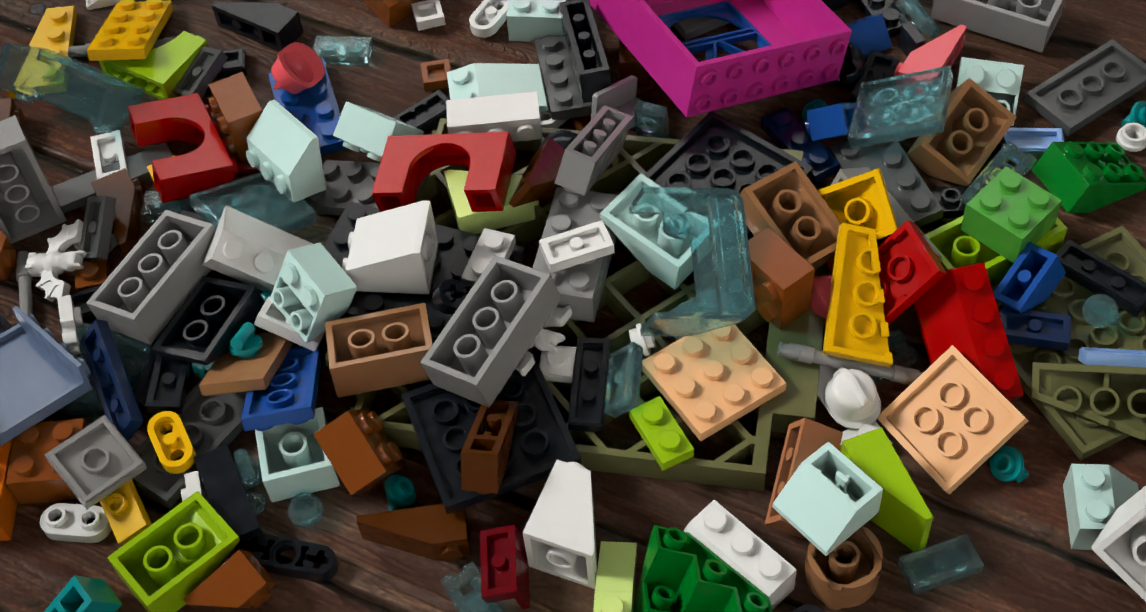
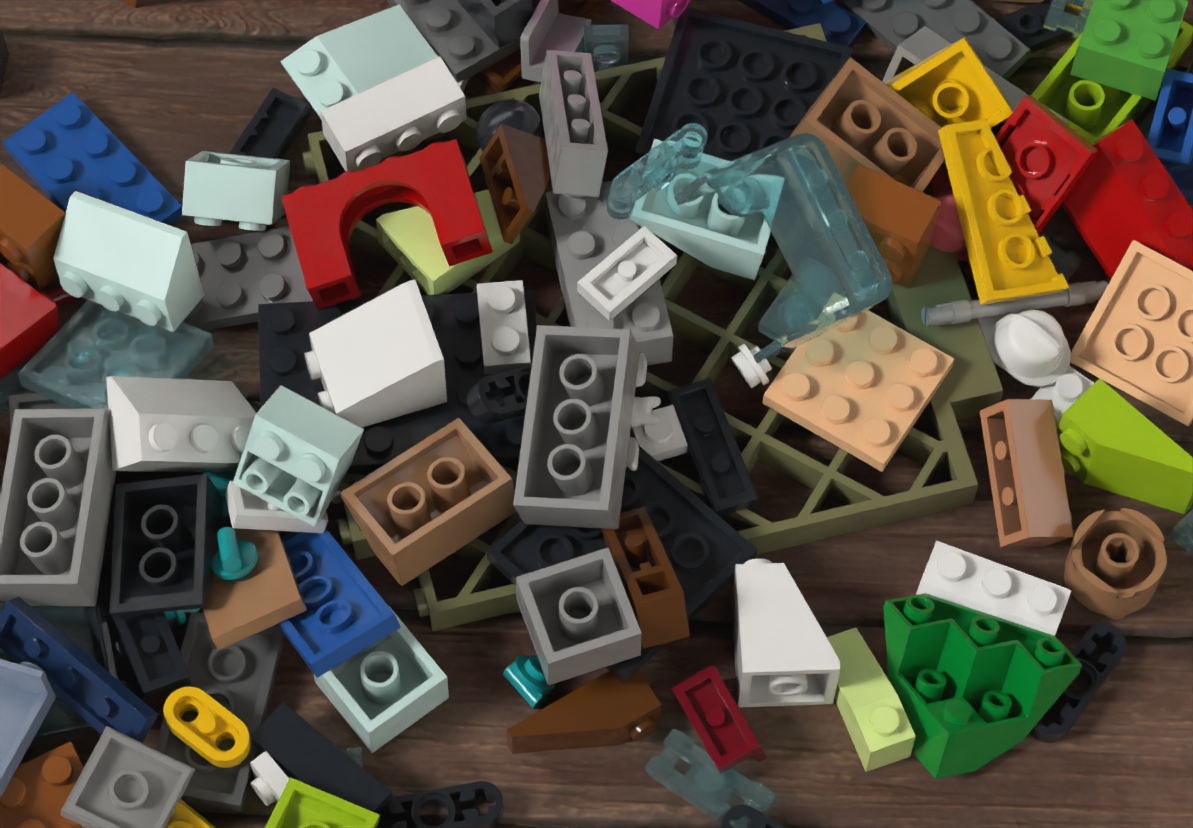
camera: 30 degrees left, 10 degrees up
(248, 468) = (321, 717): clear light blue plate -> none
(297, 68) = (60, 126): coral piece -> none
(305, 510) = (424, 746): clear light blue plate -> none
(343, 49) = (88, 67): clear light blue plate -> none
(359, 450) = (472, 645): dark orange brick -> none
(425, 451) = (578, 616): none -> light grey brick
(435, 74) = (254, 64): dark orange plate -> none
(623, 186) = (656, 169): none -> clear light blue plate
(624, 380) = (756, 427): clear light blue plate -> none
(661, 433) = (832, 479): lime plate -> none
(828, 498) = (1080, 492): light aqua slope -> none

